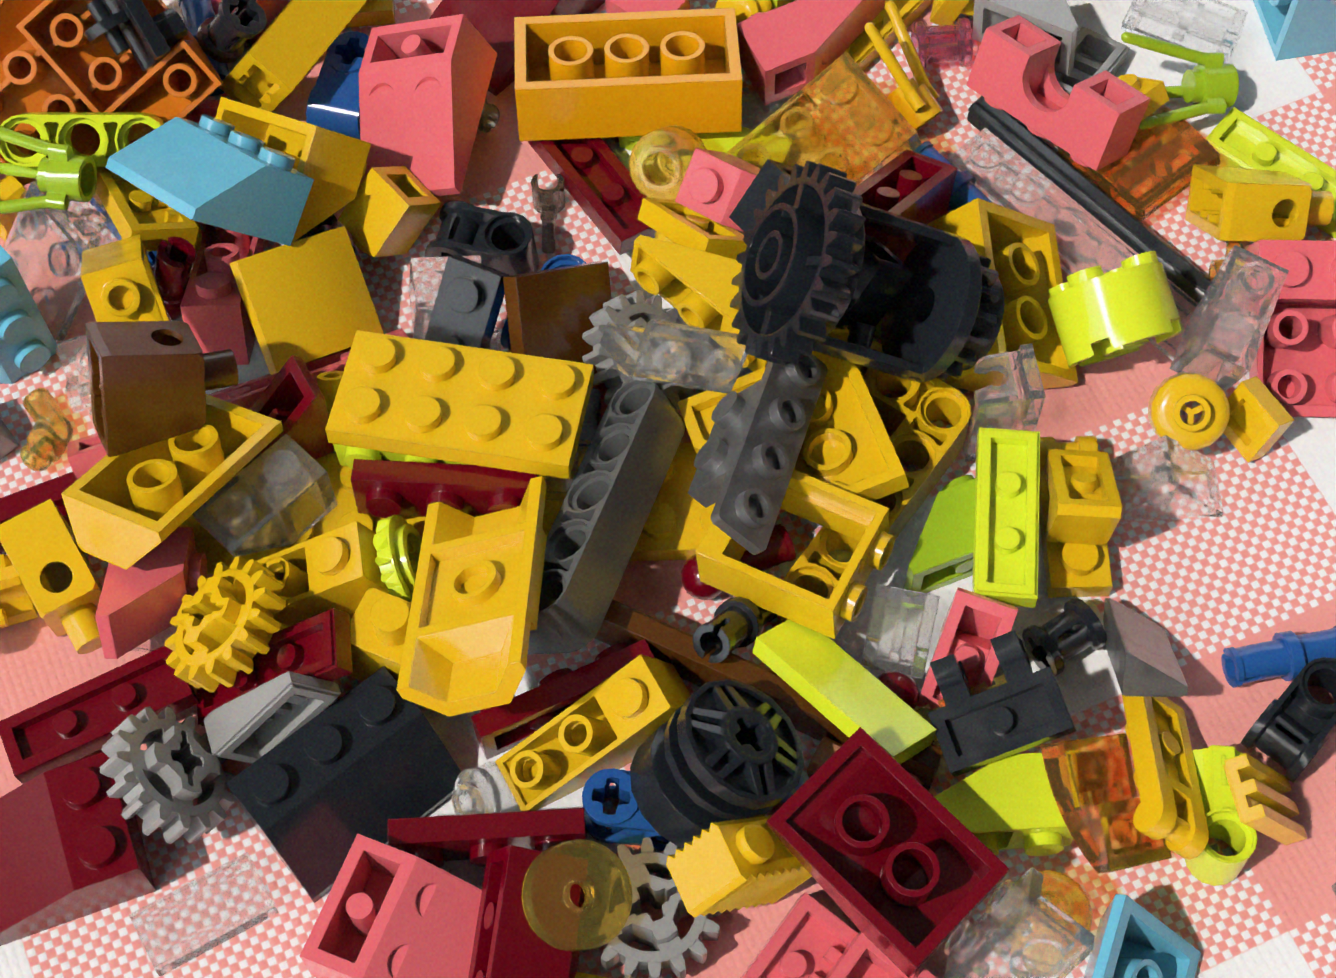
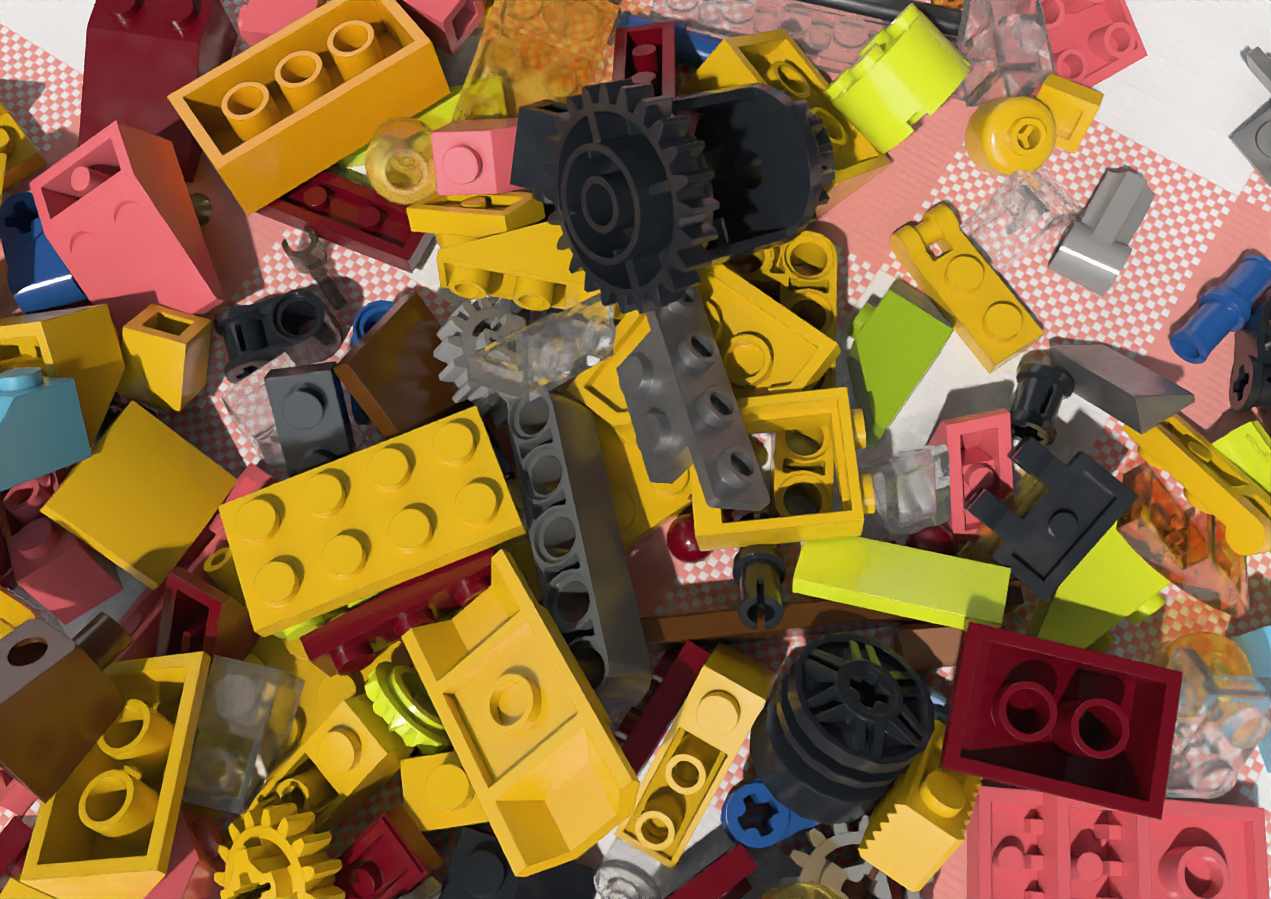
camera: 30 degrees left, 10 degrees up
(1007, 516) = (933, 326): neon yellow tile -> none
(1011, 405) = (866, 216): clear hinge -> none
(1082, 497) = (985, 266): yellow slope -> none
(1208, 543) = (1098, 243): none -> light grey piece

